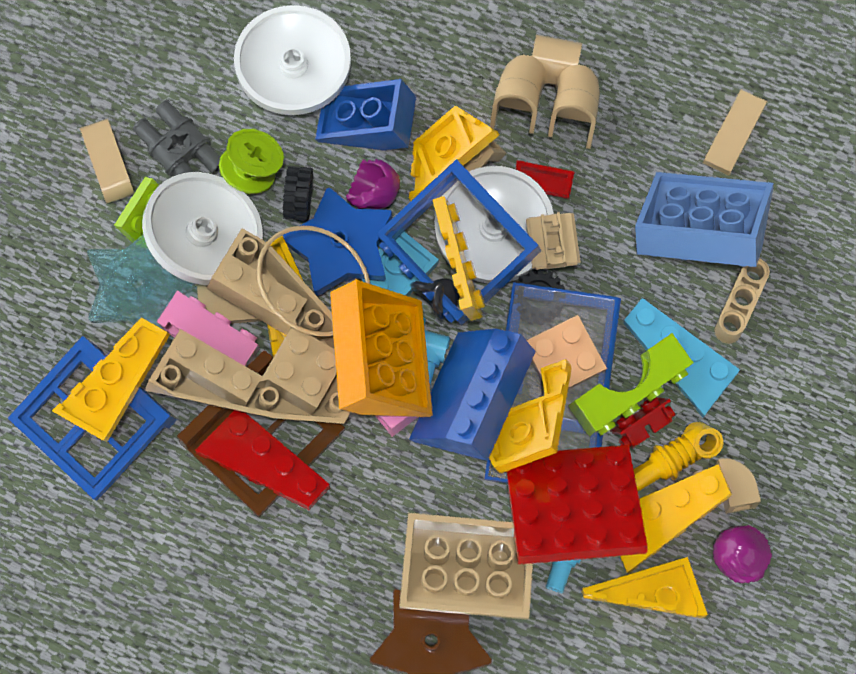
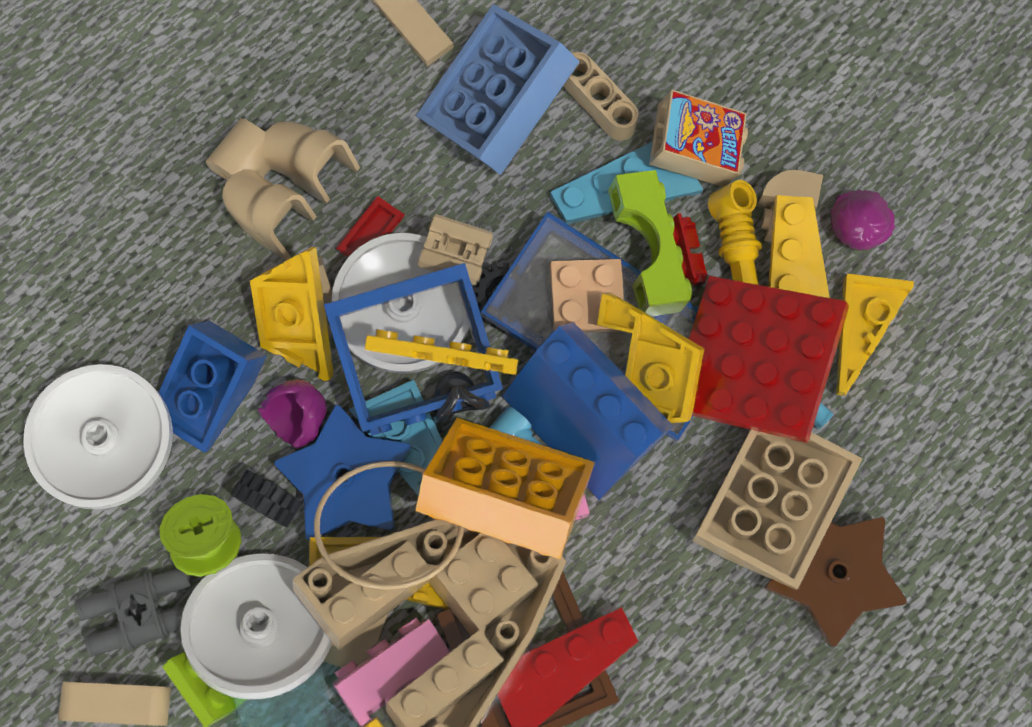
camera: 65 degrees left, 5 degrees up
(742, 391) = (698, 138): none -> brick

